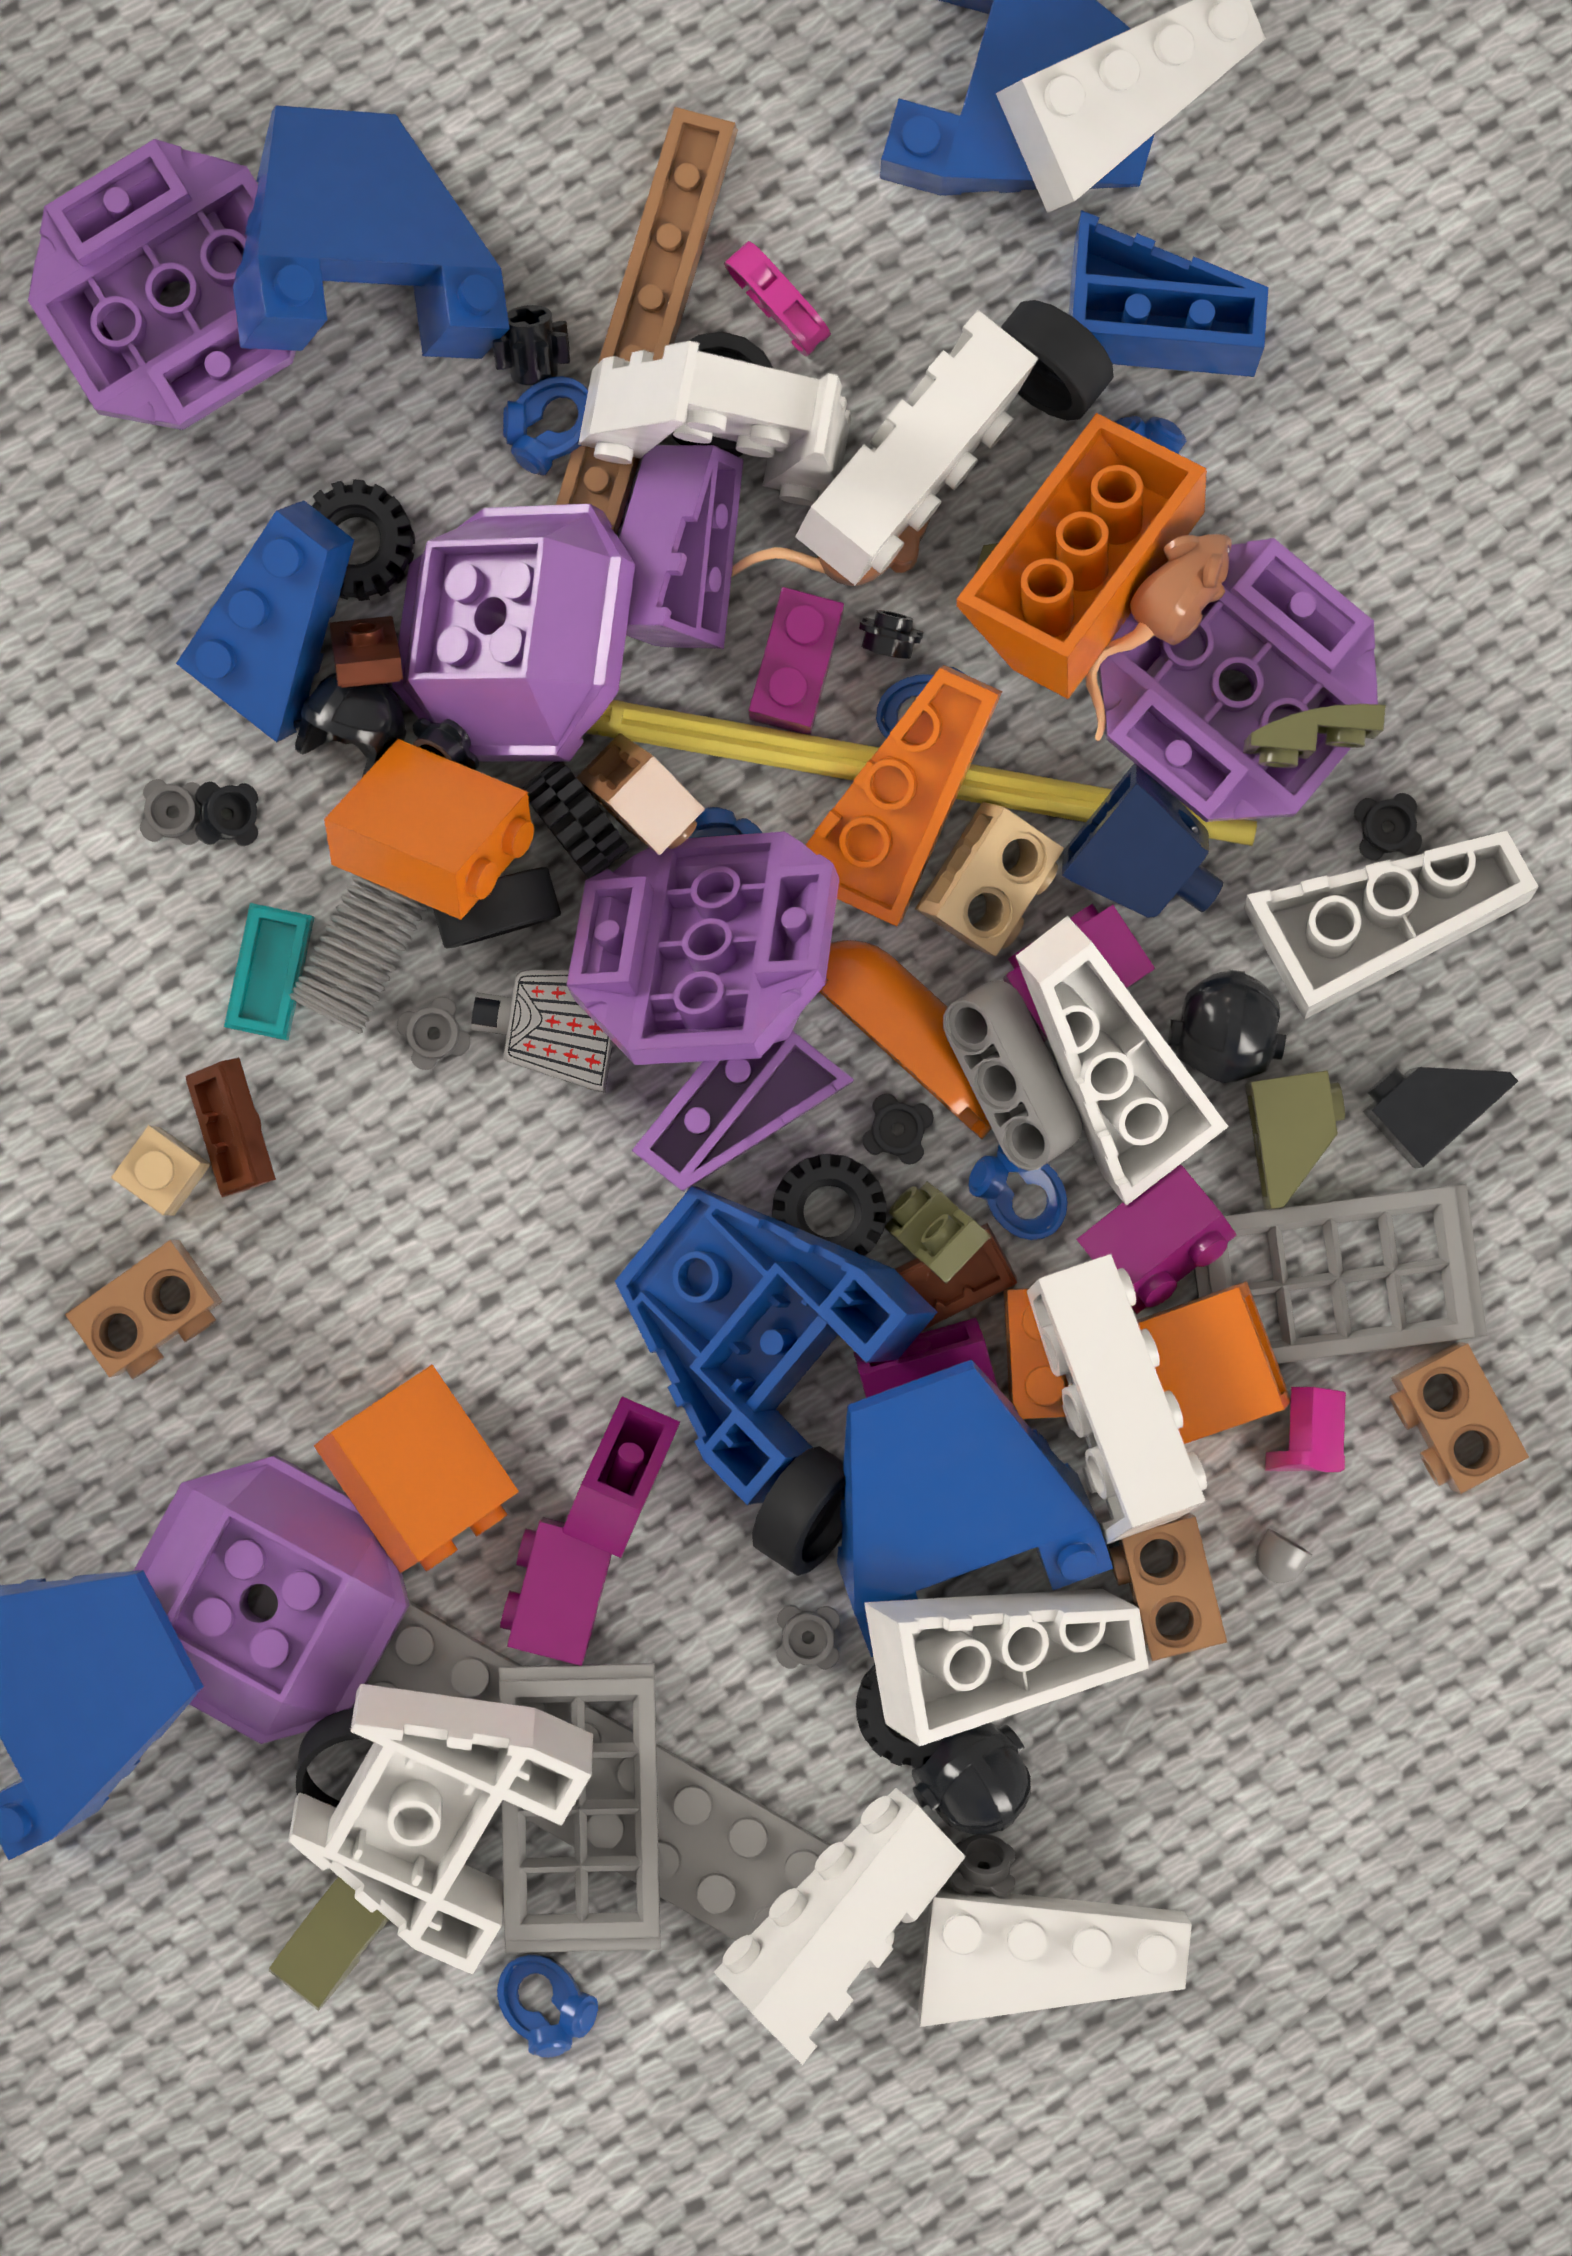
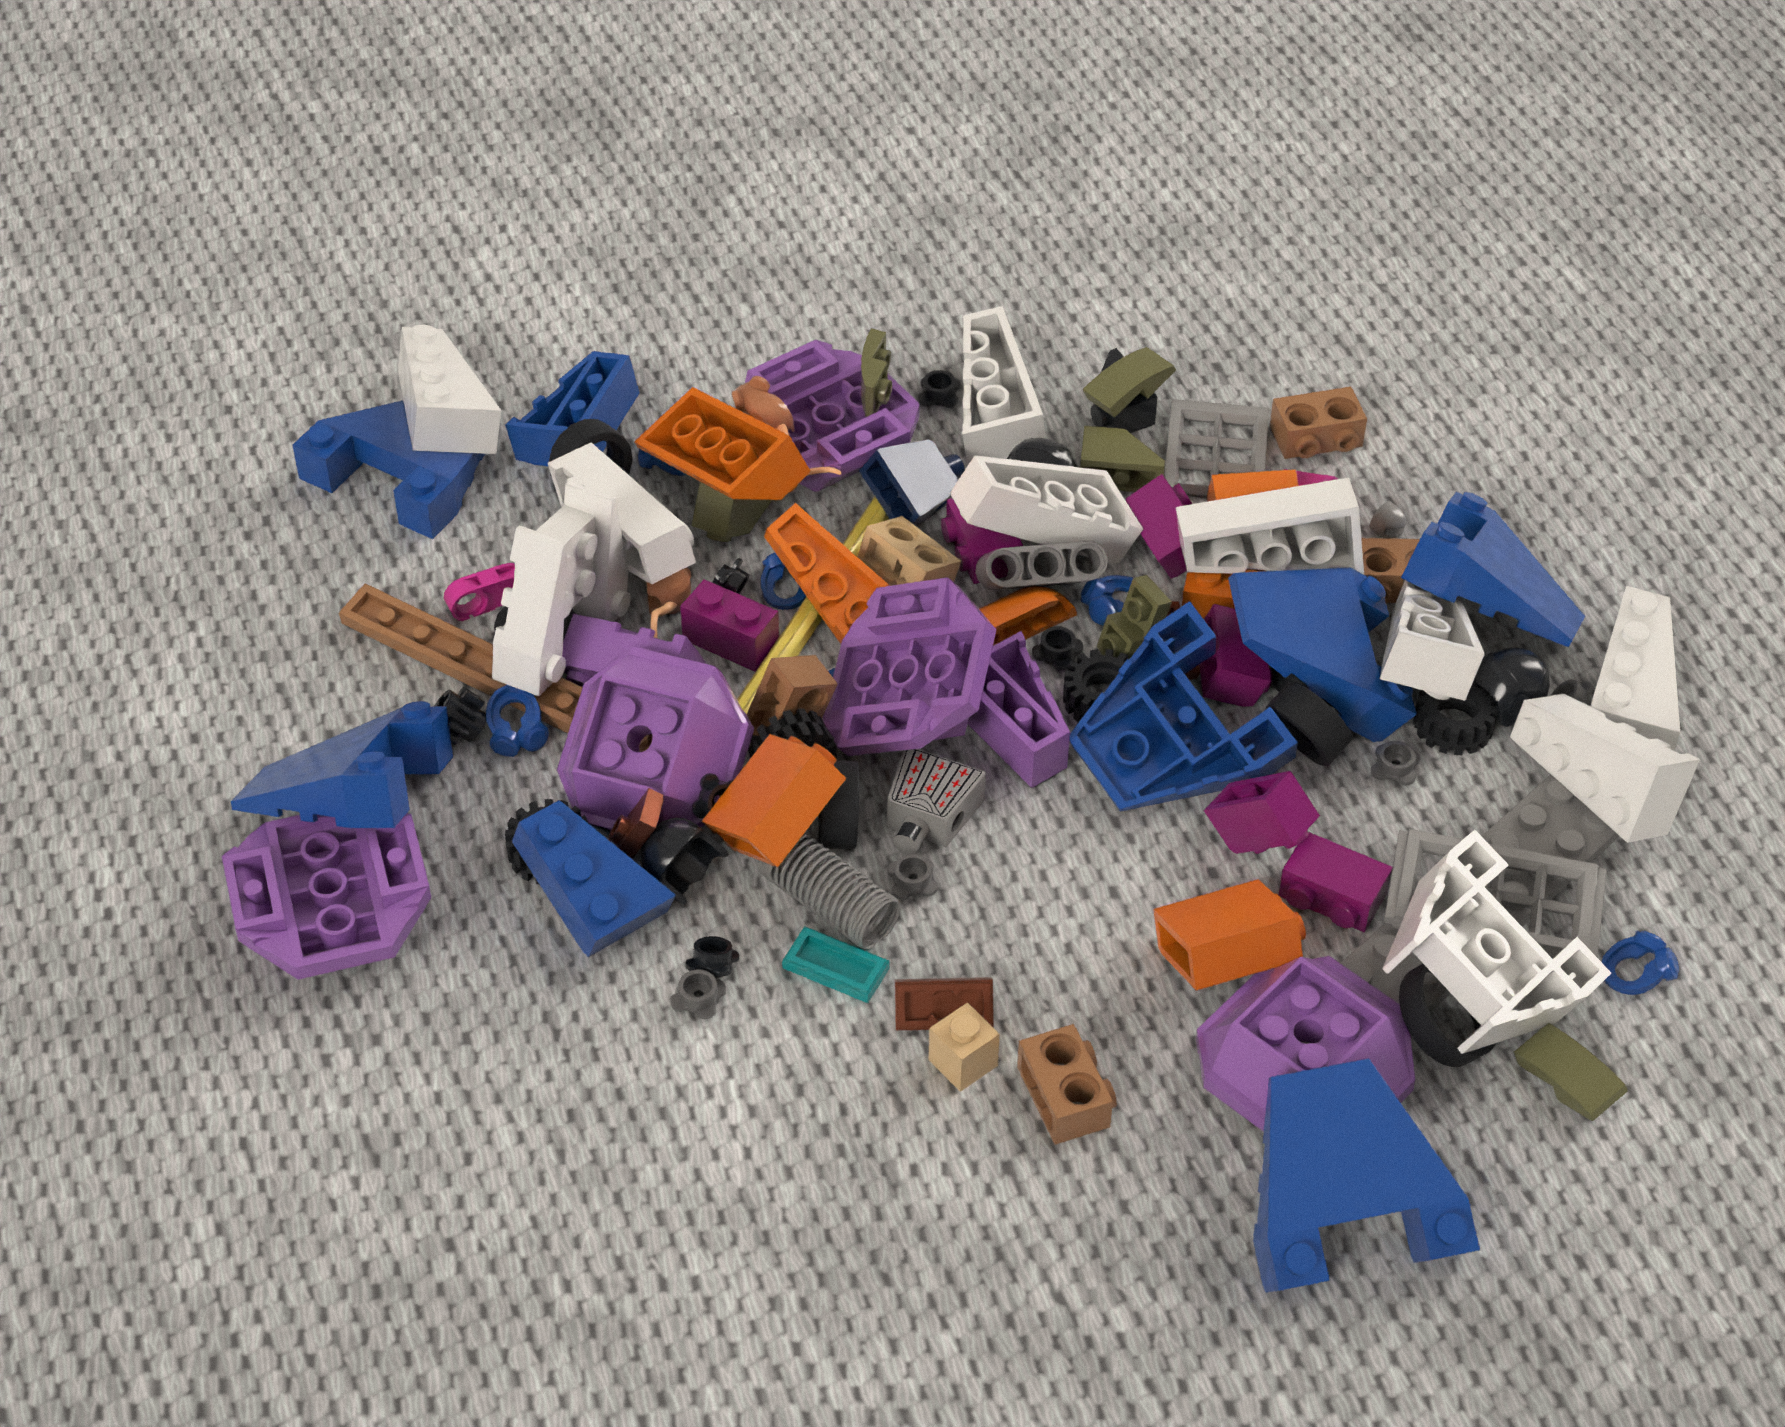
camera: 80 degrees left, 40 degrees down
(1162, 1759) = (1483, 561): none -> blue wedge
(1421, 1120) = (1126, 378): none -> olive slope

